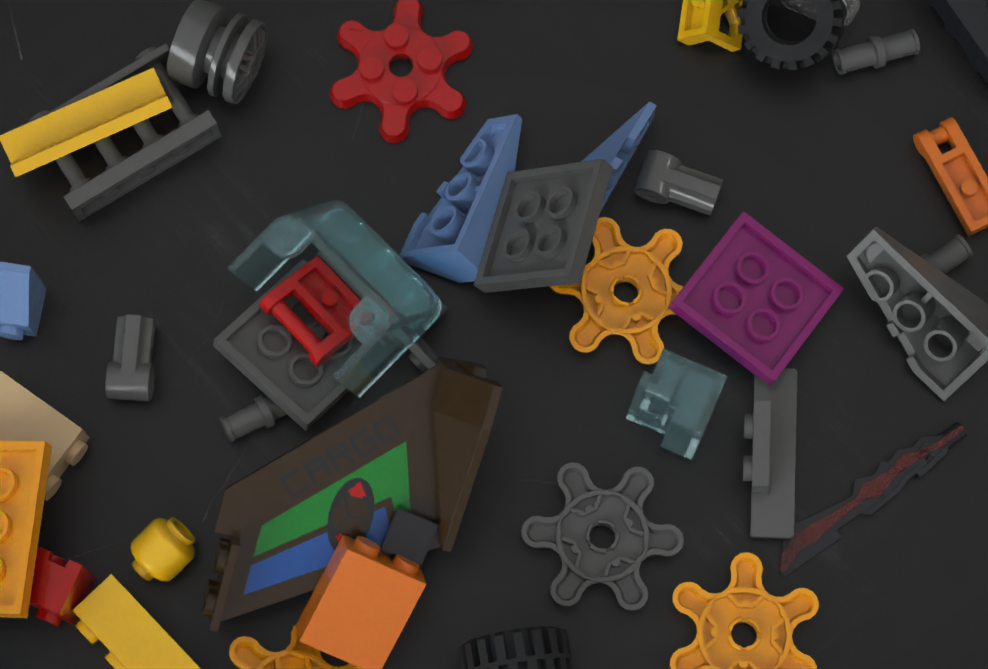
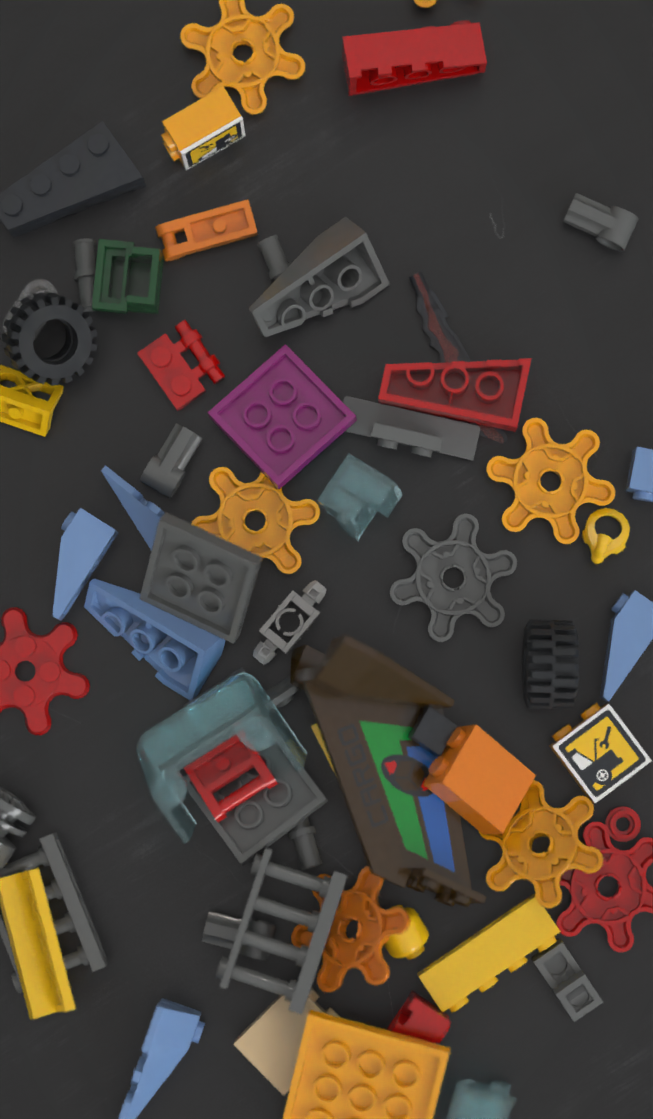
camera: 80 degrees left, 10 degrees up
(155, 463) = (373, 931): none -> orange plate
(156, 442) = (305, 957): none -> dark grey fence
(473, 331) = (313, 593): none -> light grey piece
(547, 99) = (80, 552): none -> medium blue slope
(784, 167) = (173, 372): none -> red plate
(833, 513) = (470, 392): none -> red wedge
(882, 93) = (127, 278): none -> dark green plate

